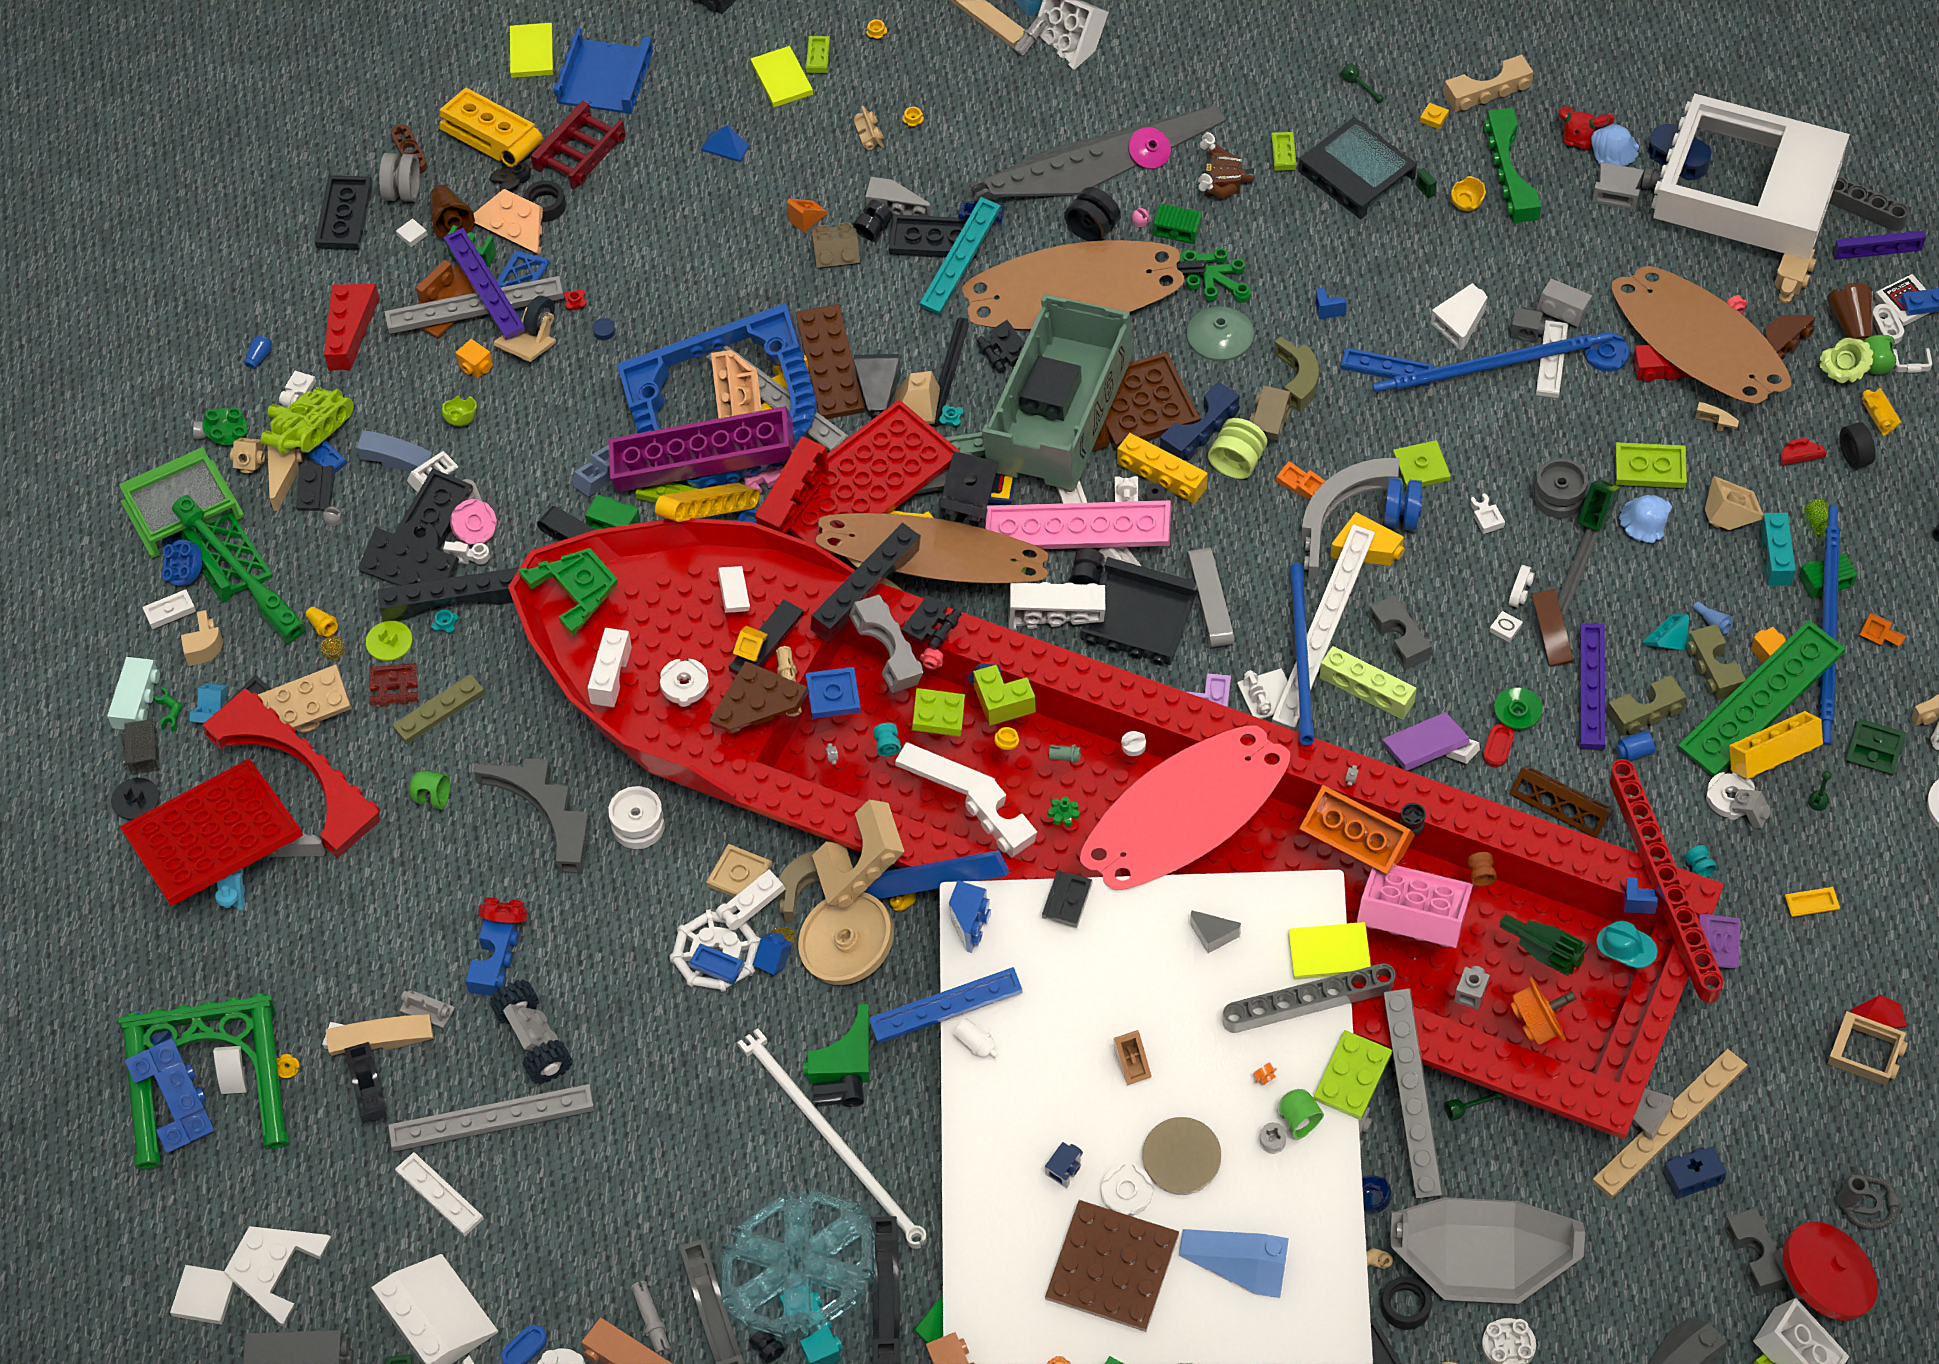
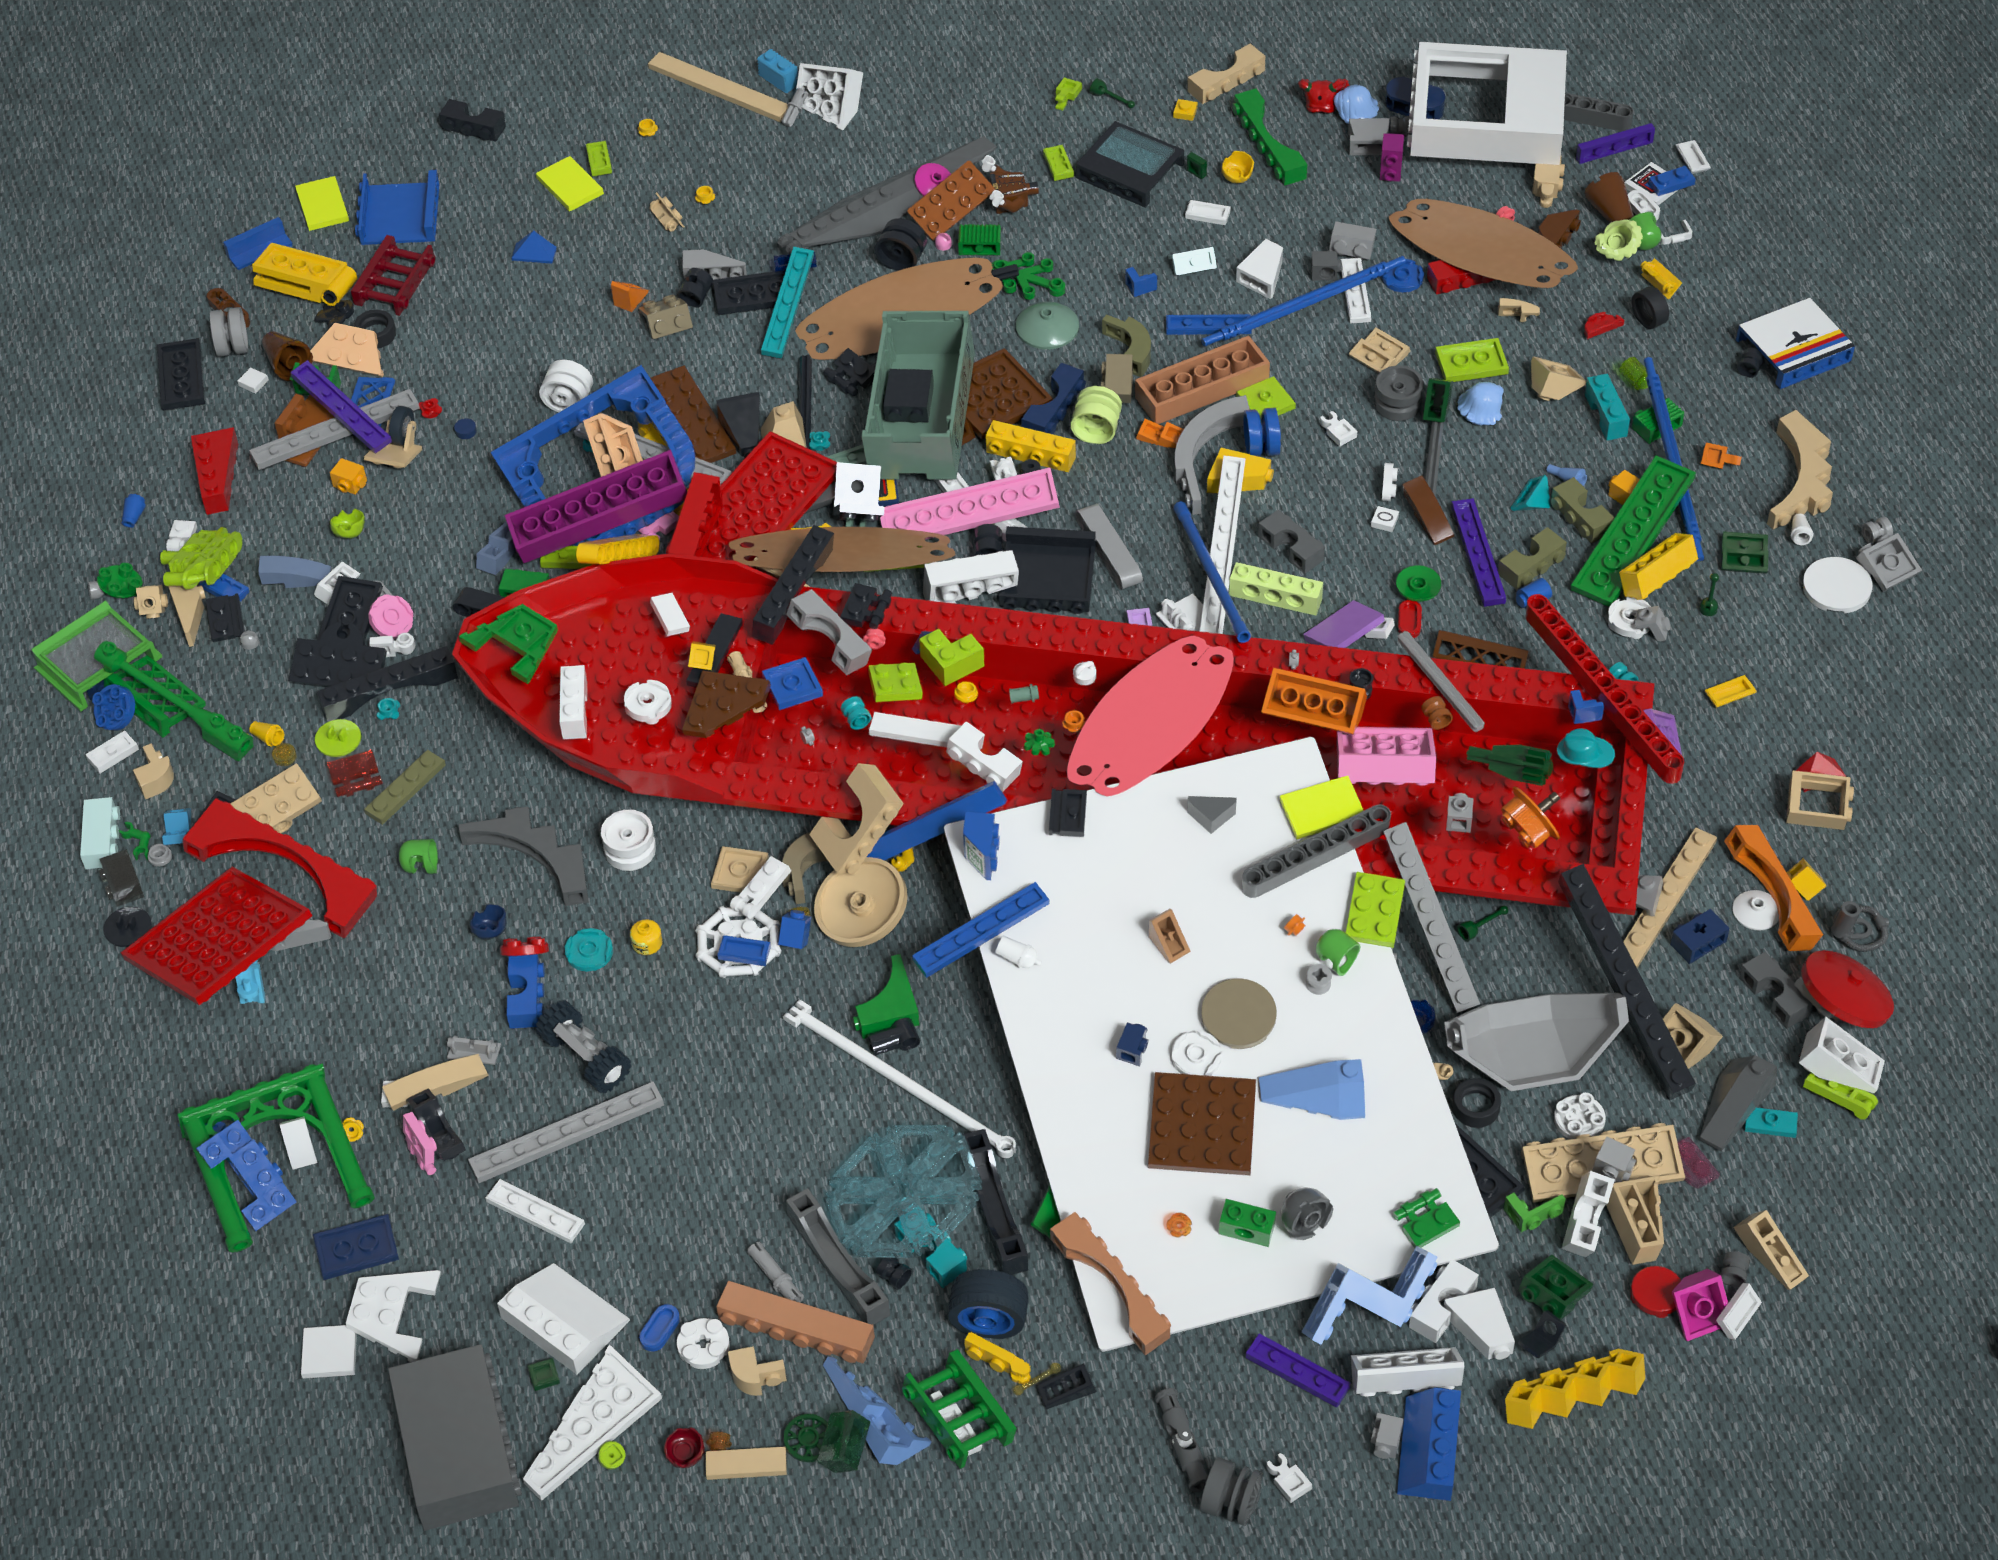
camera: 15 degrees left, 5 degrees down
(184, 724) = (157, 850): none -> light grey plate
(258, 1190) = (355, 1246): none -> dark blue tile
(344, 1098) = (419, 1142): none -> bright pink plate
(446, 84) = (248, 246): none -> blue panel
(478, 875) = (489, 923): none -> dark blue hair
(568, 925) = (589, 950): none -> teal tile
(625, 926) = (646, 937): none -> yellow head
(711, 304) = (565, 384): none -> white wheel
(1106, 789) = (1073, 721): none -> orange plate
(1159, 174) = (951, 200): none -> dark orange bracket
(1316, 69) = (1067, 90): none -> lime plate
(1359, 430) = (1201, 380): none -> nougat brick
(1391, 291) = (1193, 261): none -> light aqua panel
(1423, 238) = (1207, 212): none -> white tile
(1497, 834) = (1441, 681): none -> light grey axle
(1556, 434) = (1379, 351): none -> tan slope
(1594, 1212) = (1626, 980): none -> black brick
(1632, 216) = (1391, 157): none -> magenta brick
(1642, 1283) = (1691, 1034): none -> tan slope
(1765, 1165) = (1752, 916): none -> white dish
(1779, 1089) = (1753, 851): none -> orange arch
(1826, 1134) = (1806, 879): none -> yellow panel

